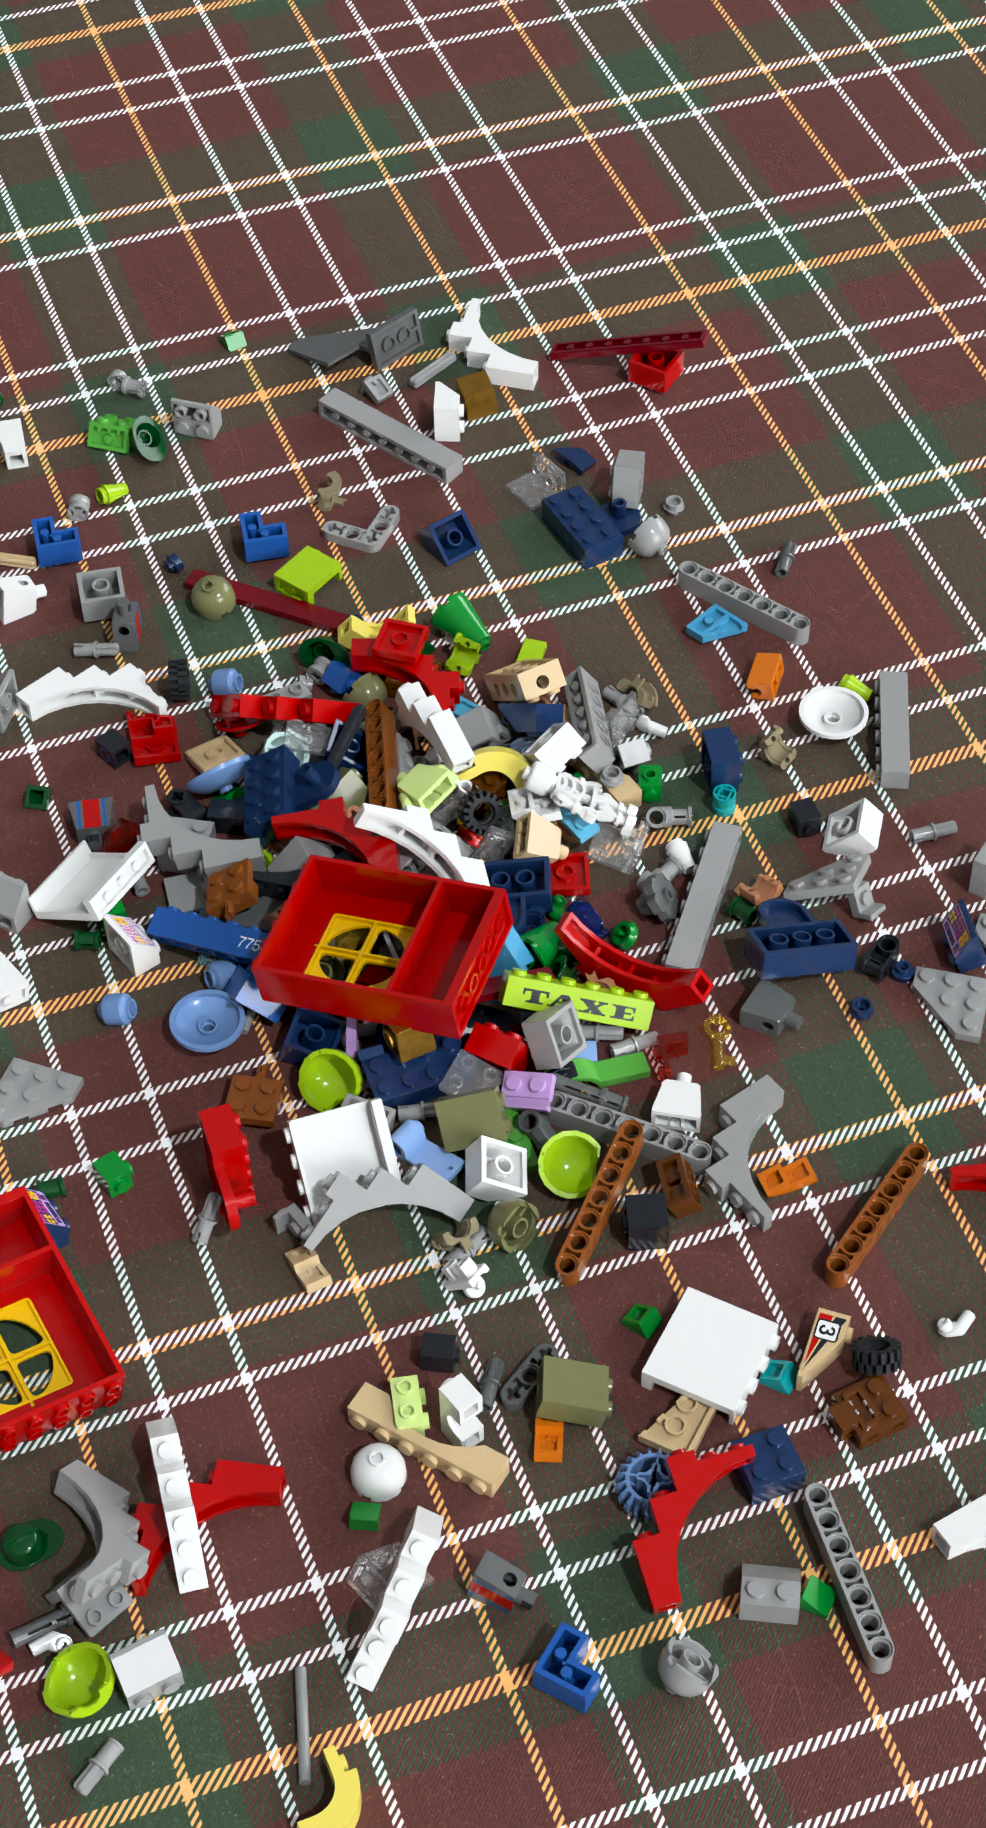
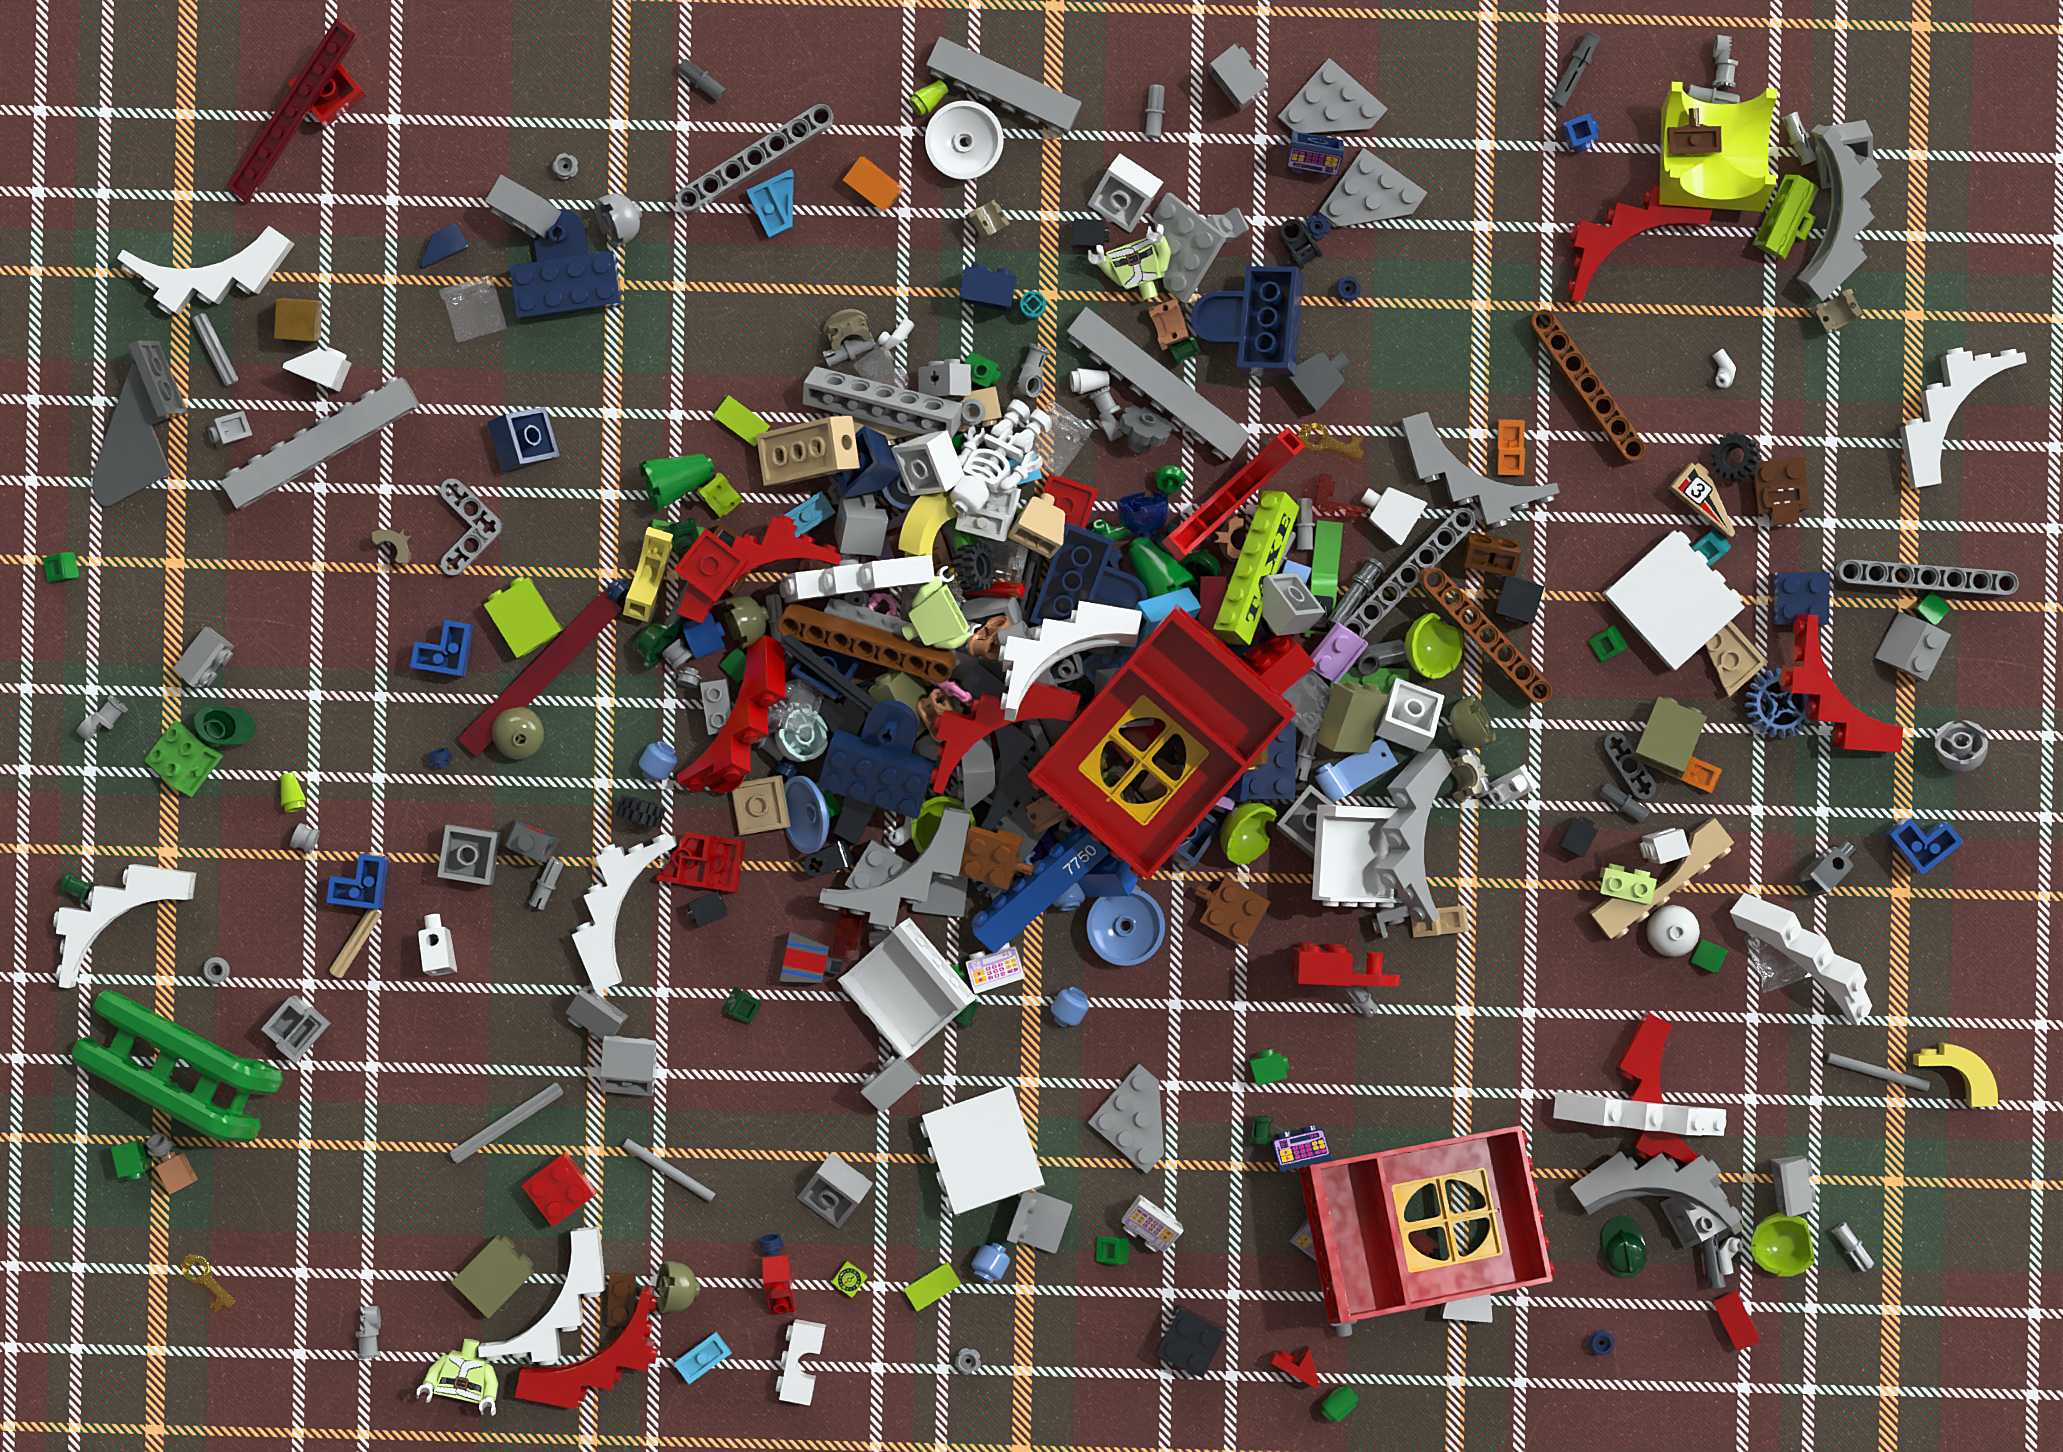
camera: 65 degrees left, 40 degrees up
(798, 850) = (1136, 262): none -> torso

